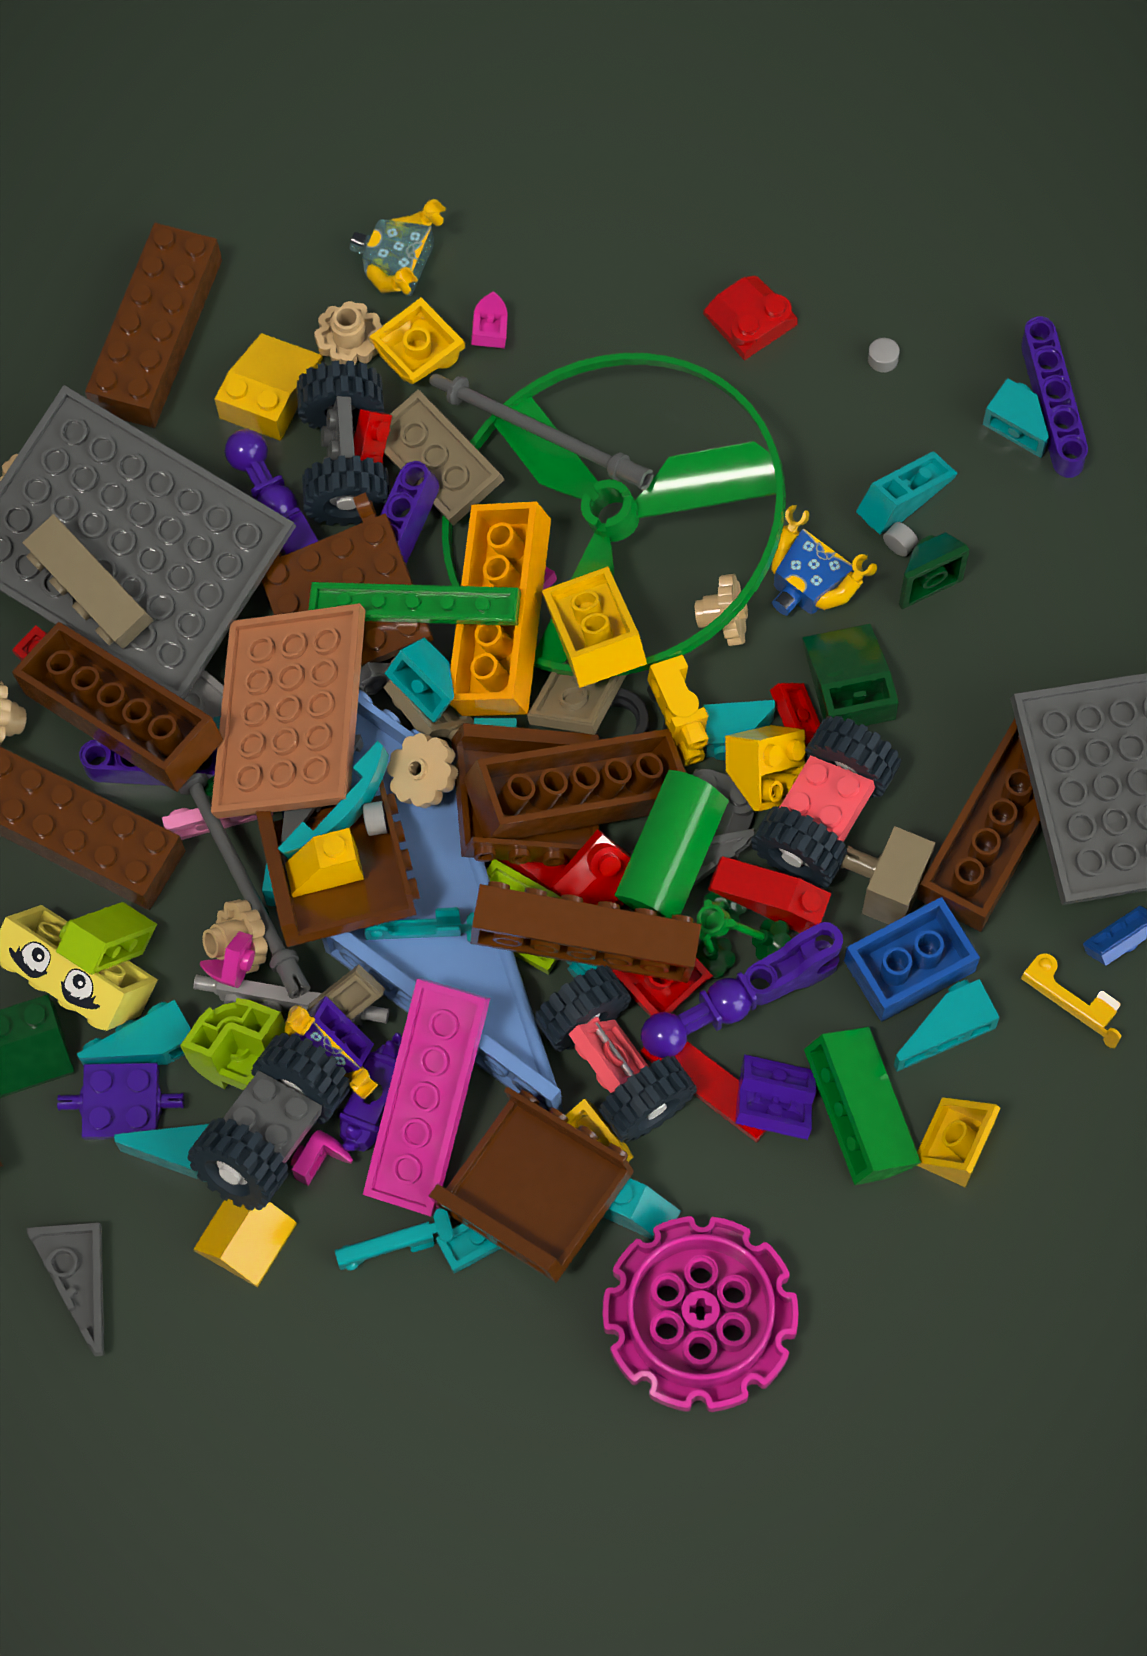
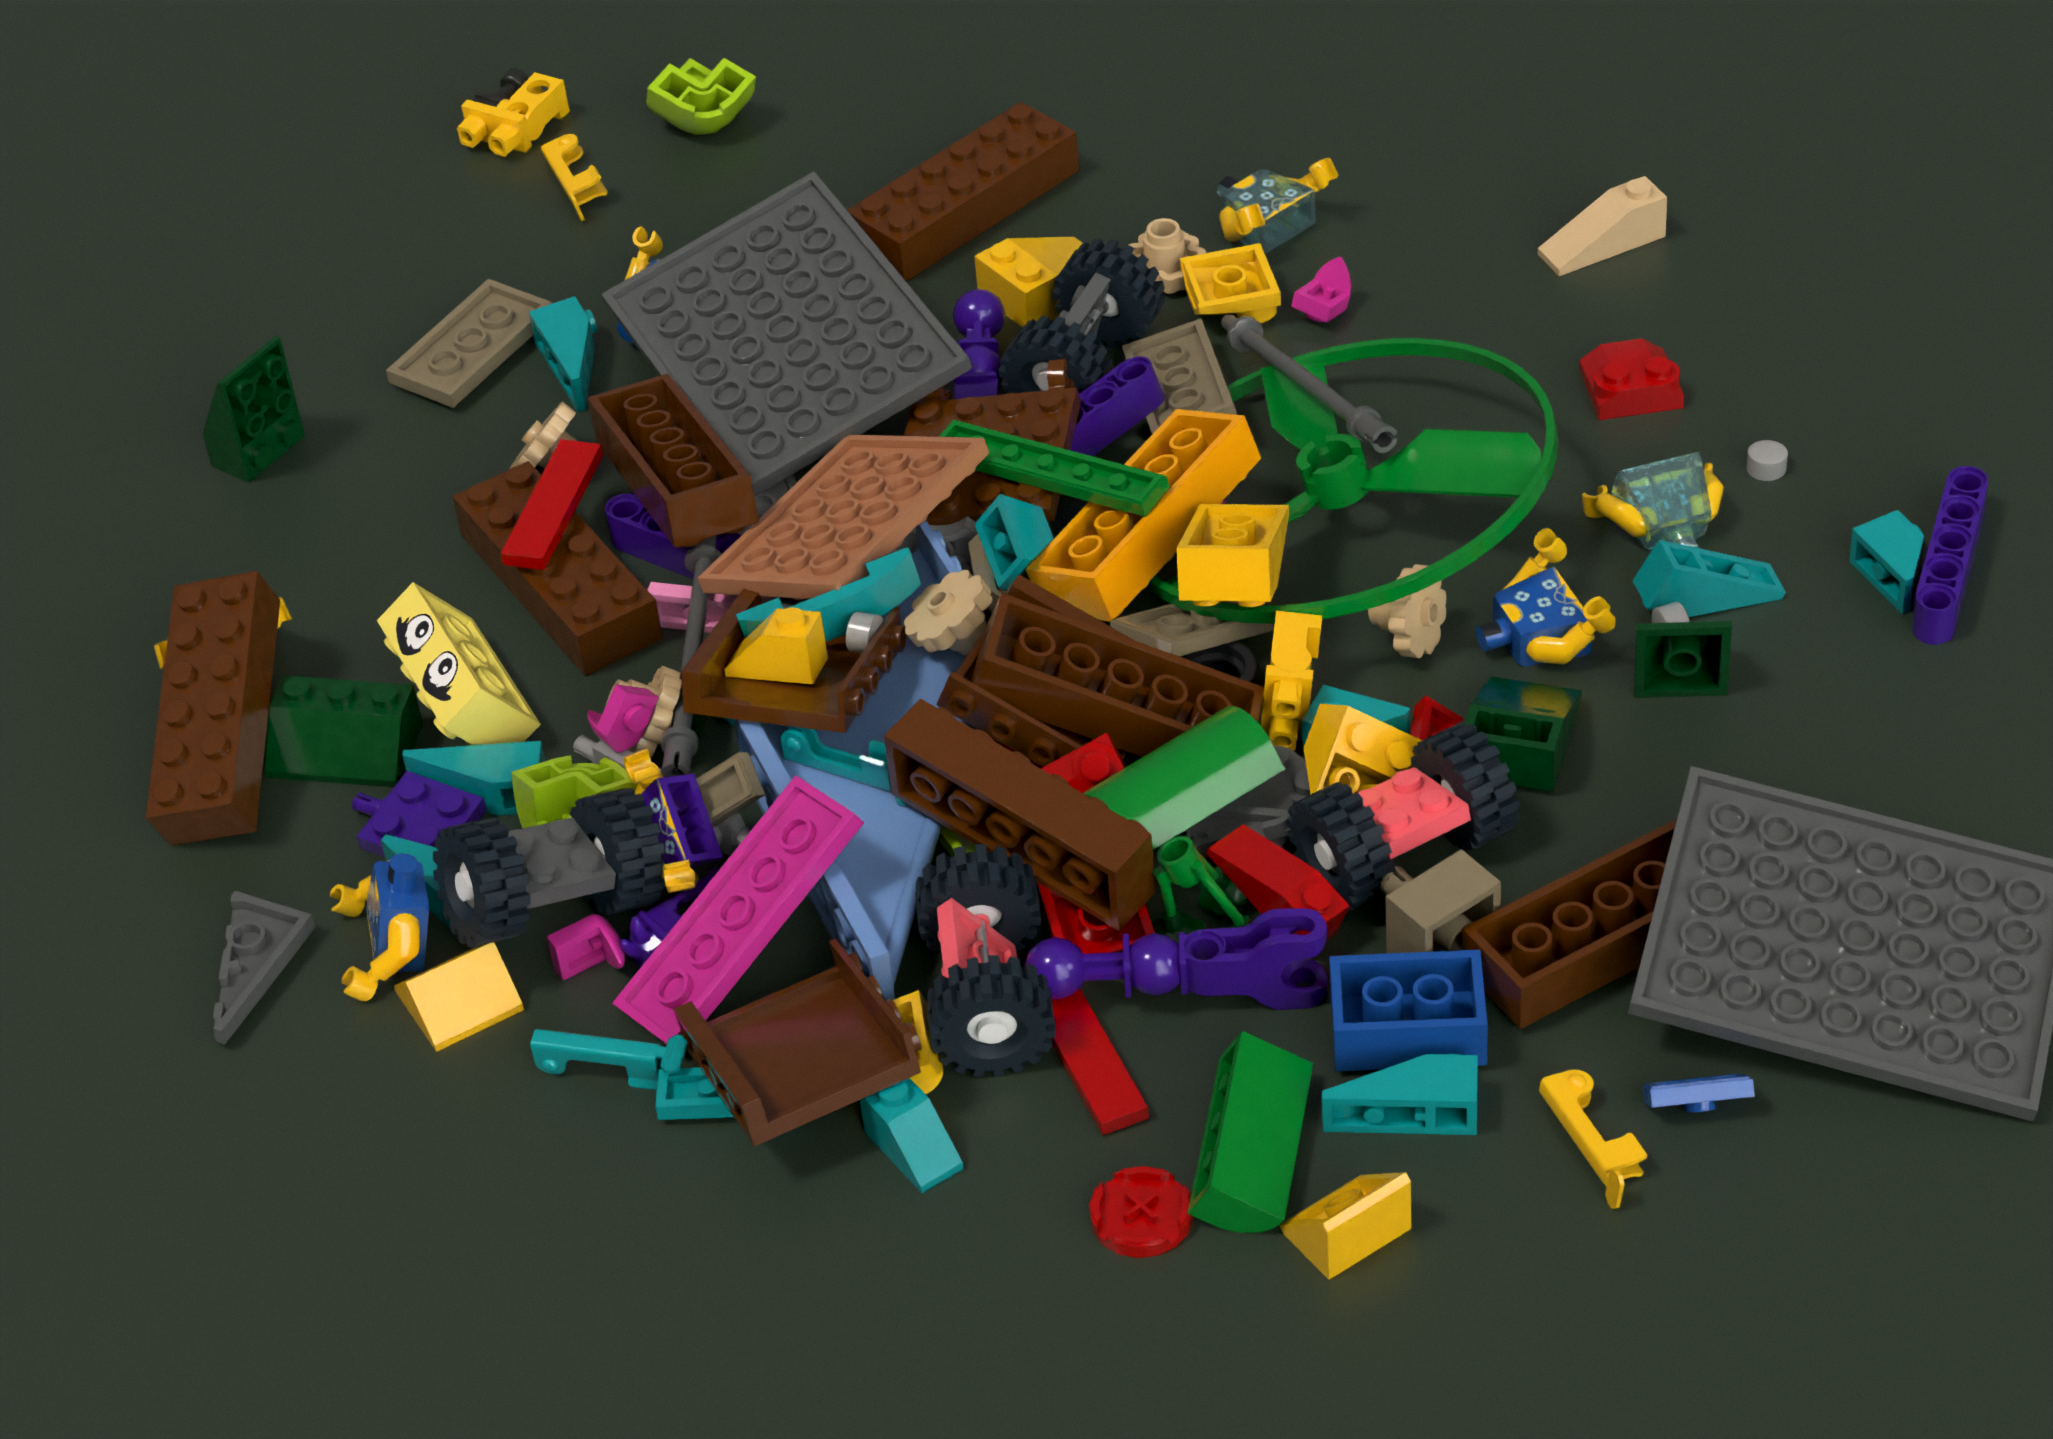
camera: 30 degrees right, 25 degrees down
(50, 785) = (552, 504): none -> red tile
(87, 581) = (718, 345): dark tan brick -> none
(105, 937) = (508, 651): lime brick -> none
(167, 1199) = (396, 921): none -> torso
(371, 435) = (1121, 332): red plate -> none
(636, 1311) = (904, 1256): dark pink piece -> none
(658, 174) = (1609, 226): none -> tan slope
(775, 1097) = (1150, 1087): dark purple slope -> none
(819, 1194) = (1140, 1212): none -> red tile
(841, 433) = (1661, 500): none -> clear light blue torso

